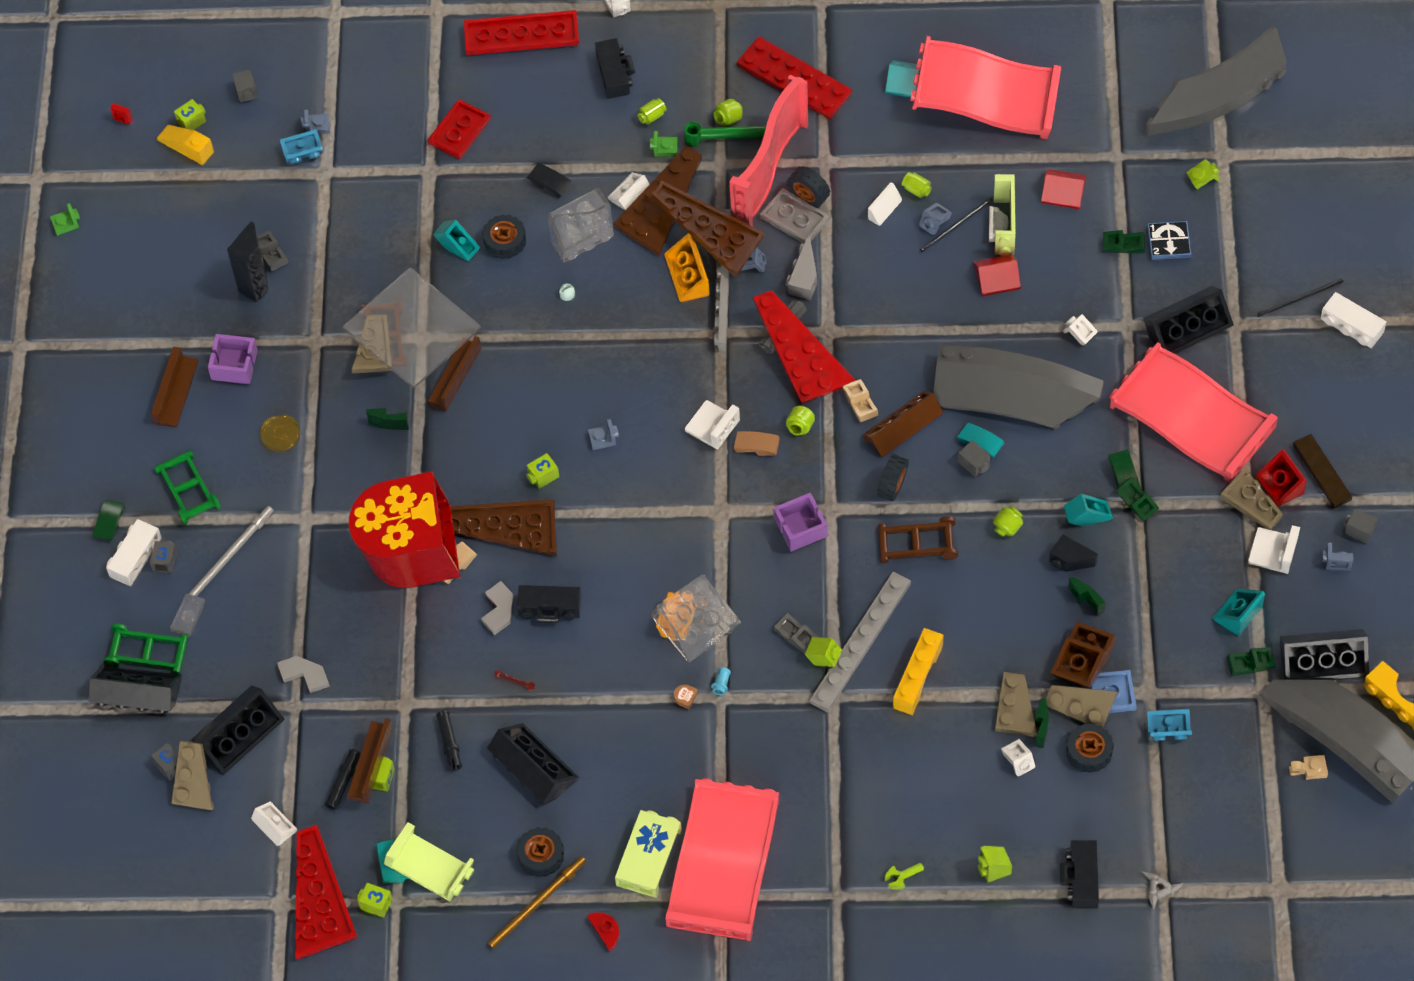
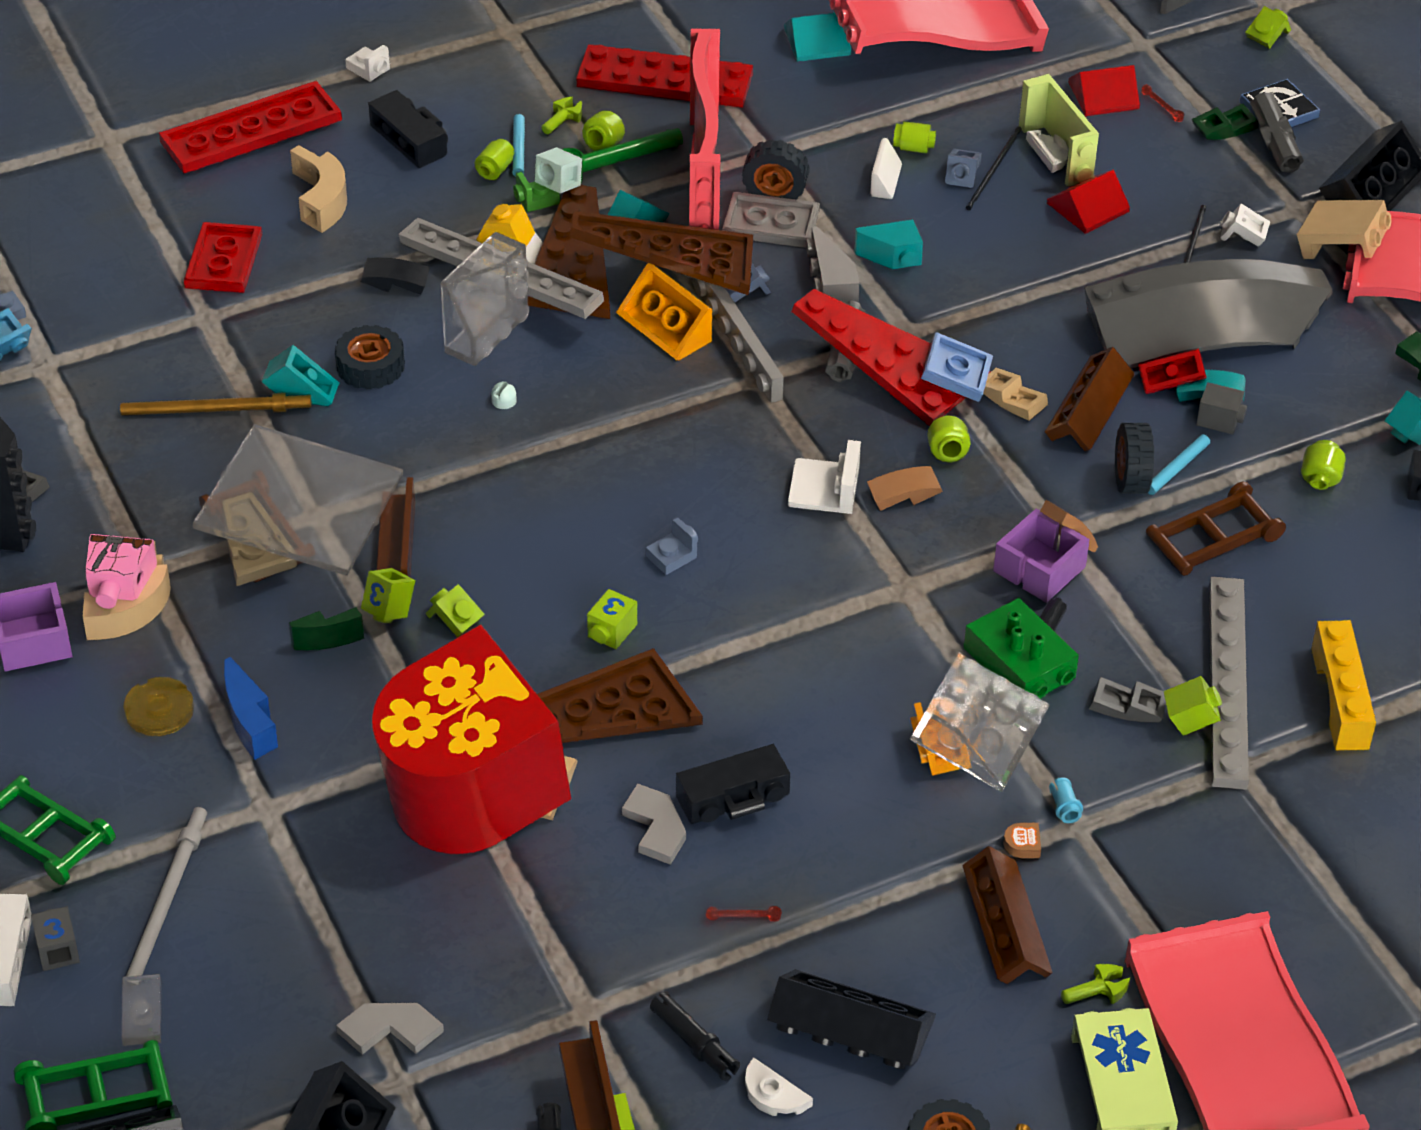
camera: 30 degrees left, 15 degrees down
(289, 341) = (118, 567): none -> bright pink torso
(298, 362) = (128, 614): none -> tan arch
(321, 455) = (249, 711): none -> blue slope
(428, 409) = (387, 595): none -> lime brick
(437, 250) = (278, 402): none -> pearl gold bar
(462, 432) = (455, 609): none -> lime bracket
(471, 787) = (772, 1092): none -> white plate
(541, 105) = (328, 198): none -> tan arch
(621, 219) = (542, 283): none -> light grey plate
(625, 174) = (510, 222): none -> yellow slope
(648, 737) = (1005, 915): none -> reddish brown panel
(672, 796) = (1100, 985): none -> lime bar
(674, 103) = (518, 143): none -> medium azure bar
(678, 138) = (558, 170): none -> light aqua brick
(710, 186) = (633, 207): none -> teal slope
(715, 87) = (564, 111): none -> lime bar
(755, 577) = (1024, 646): none -> green piece
(826, 508) = (1068, 520): none -> medium nougat slope
(831, 373) = (957, 367): none -> medium blue tile
(852, 264) = (890, 244): none -> teal slope
(926, 487) = (1179, 463): none -> medium azure bar
(962, 422) = (1172, 371): none -> red slope
(1042, 328) = (1195, 234): none -> black piece
(1099, 224) = (1178, 115): none -> clear red hinge
(1134, 355) = (1344, 223): none -> tan panel
(1146, 264) = (1277, 132): none -> dark grey piece

